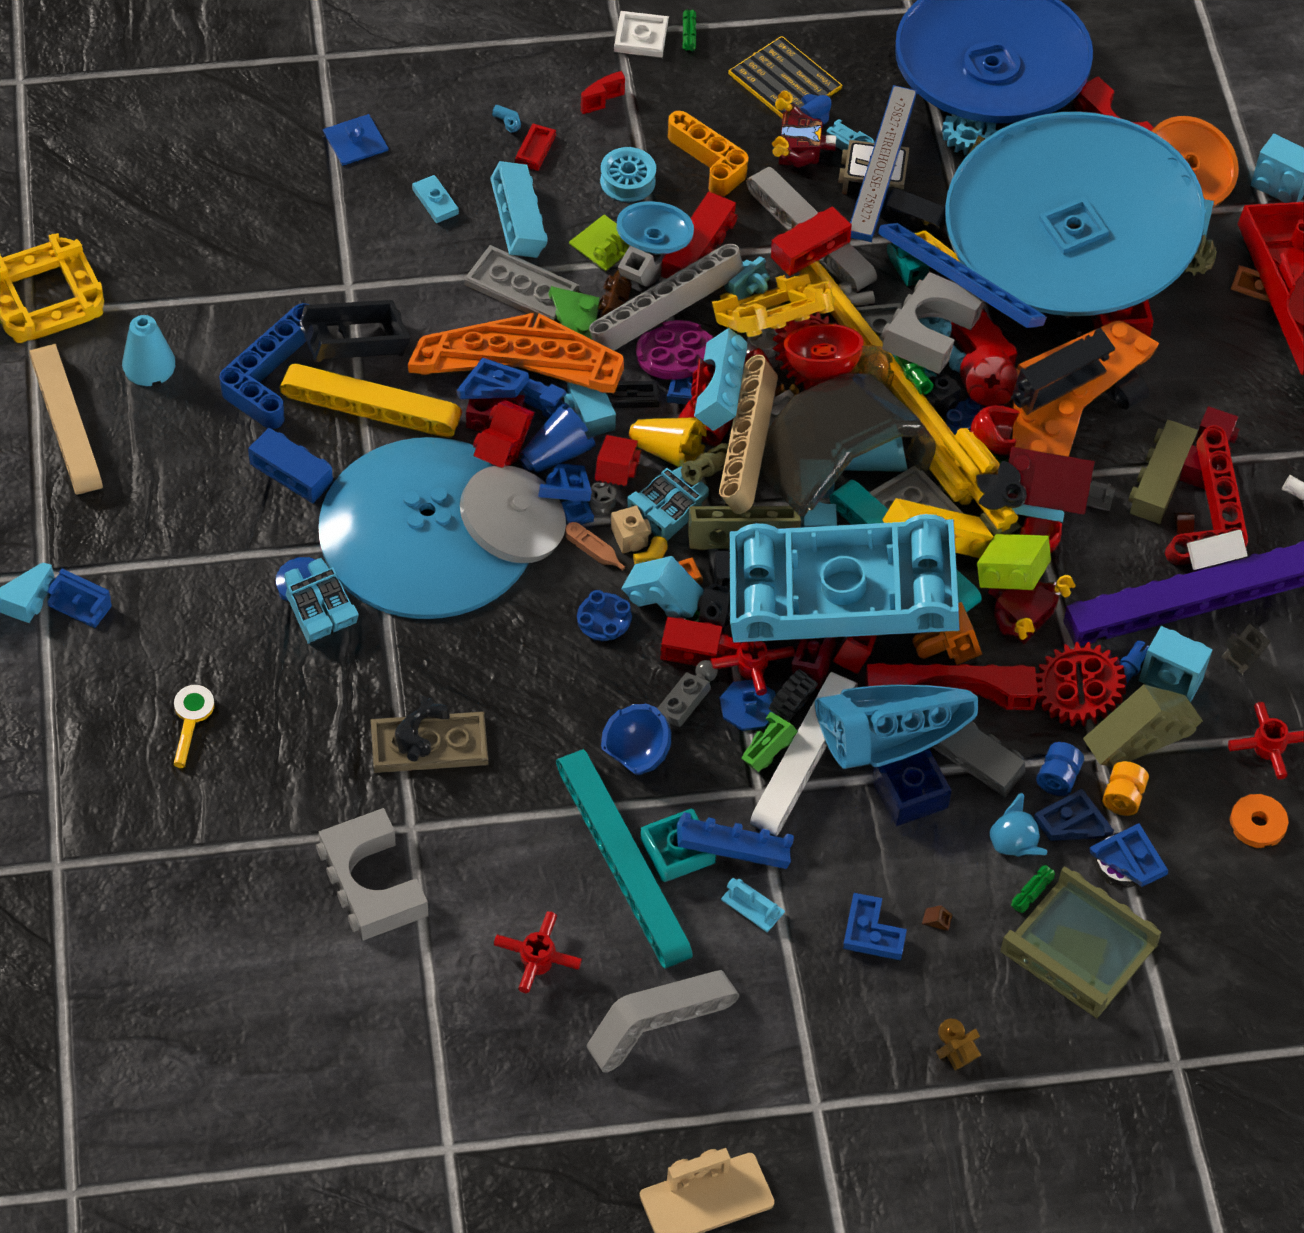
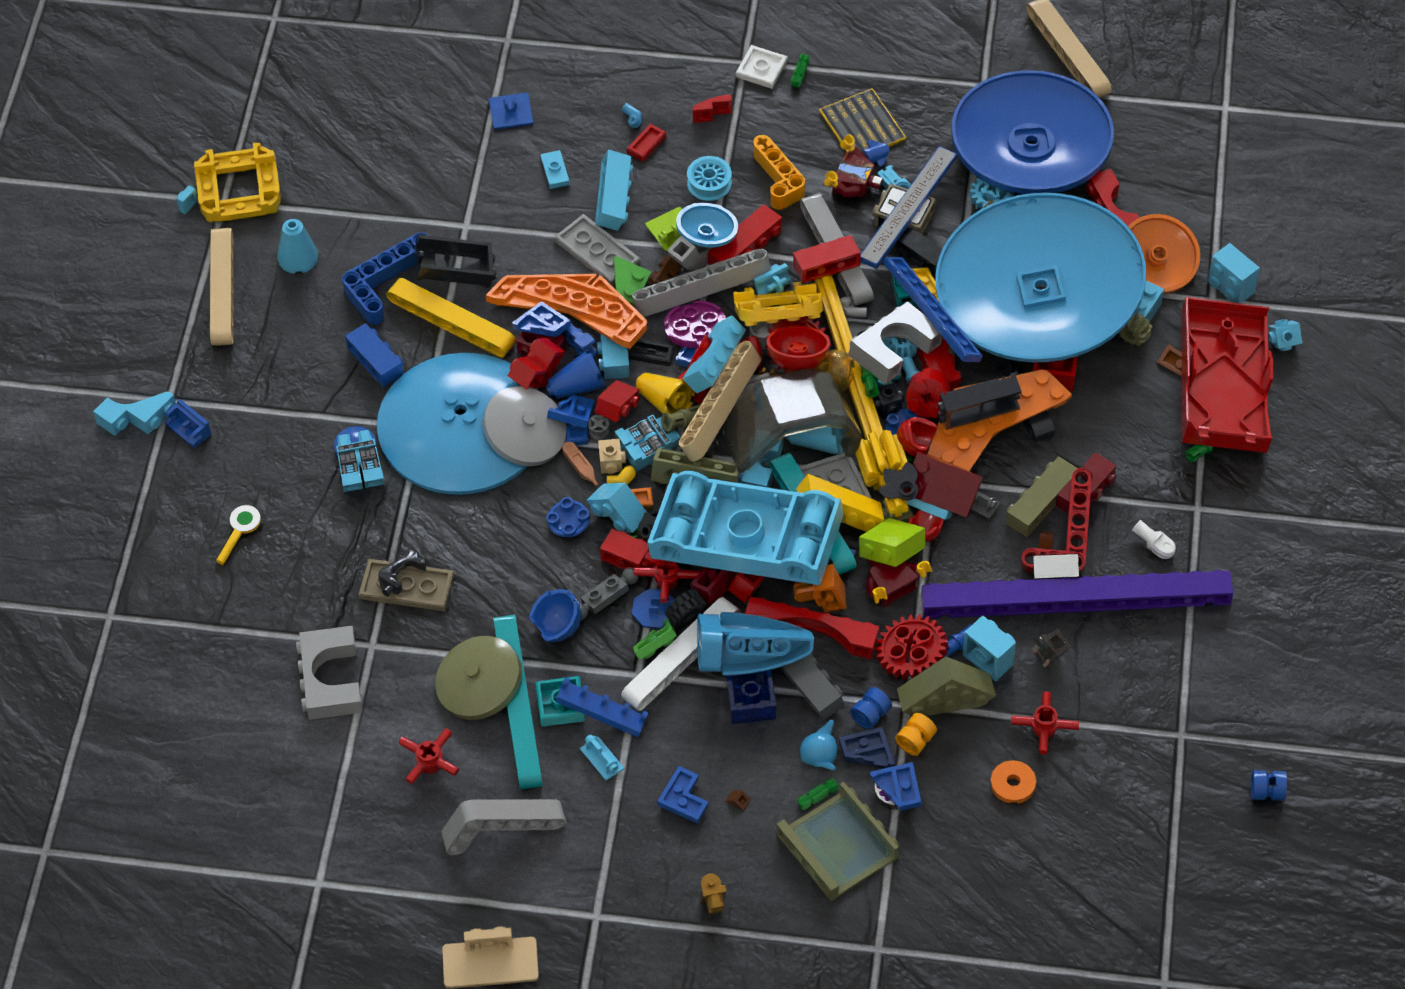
camera: 20 degrees right, 0 degrees up
(566, 838) = (478, 677): none -> olive dish

